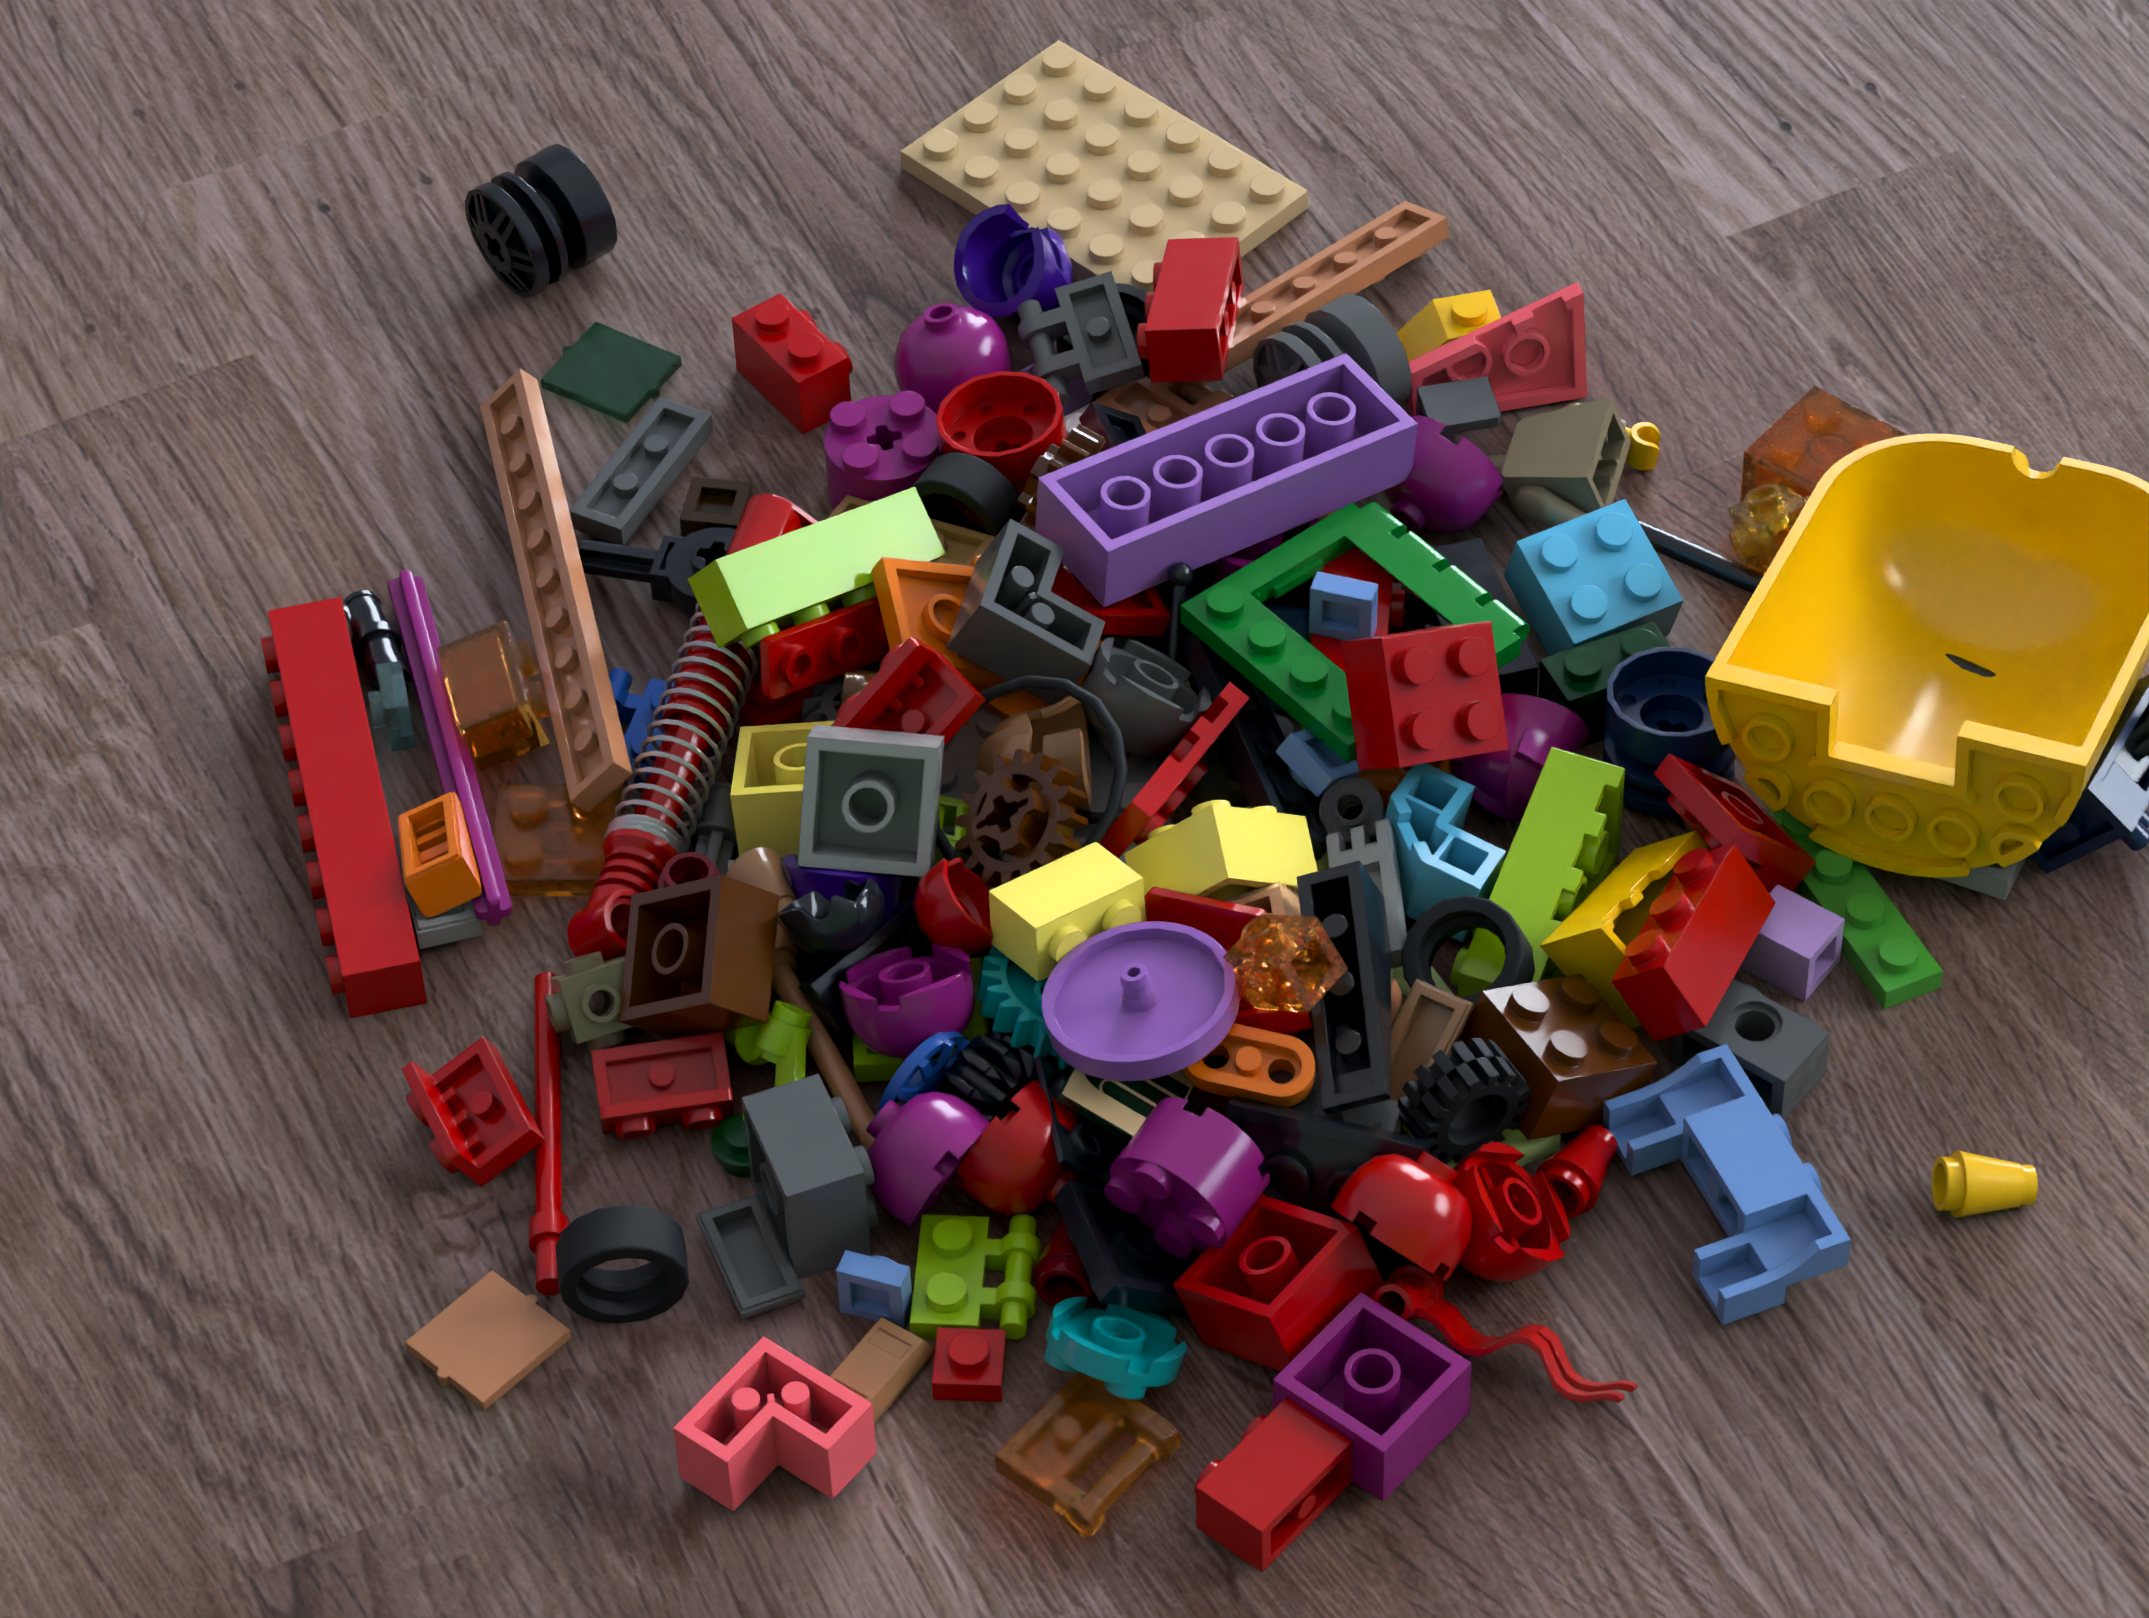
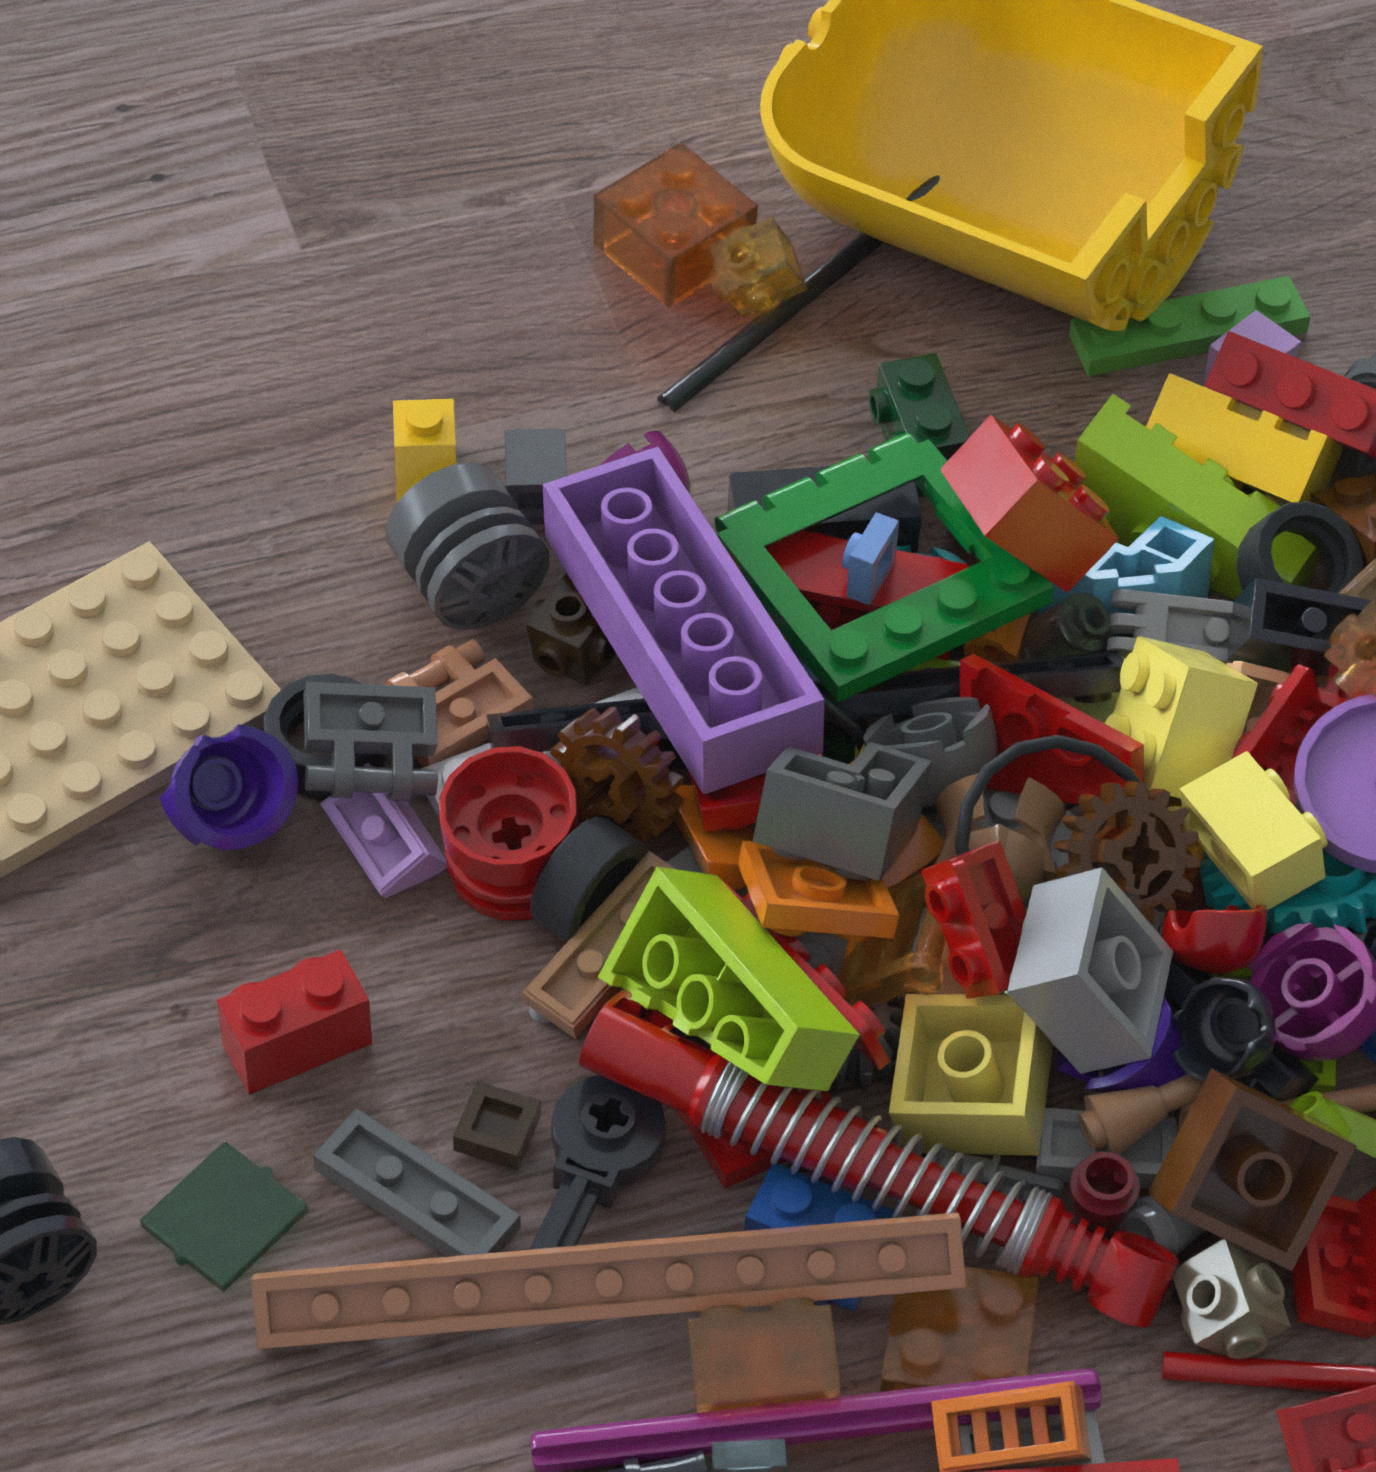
camera: 85 degrees left, 5 degrees up
(879, 446) = (476, 950): magenta brick -> none
(947, 349) = (339, 874): magenta cylinder -> none
(1192, 310) = (372, 628): red brick -> none
(1314, 763) = (1027, 637): medium blue plate -> none
(1337, 270) = (324, 561): nougat plate -> none
(1527, 355) = (477, 395): coral wing -> none
(1572, 460) = (626, 389): dark tan torso -> none
(1591, 579) = (806, 401): medium azure brick -> none
(1658, 710) = (1012, 366): dark blue wheel -> none
(1728, 815) = (1143, 360): red plate -> none

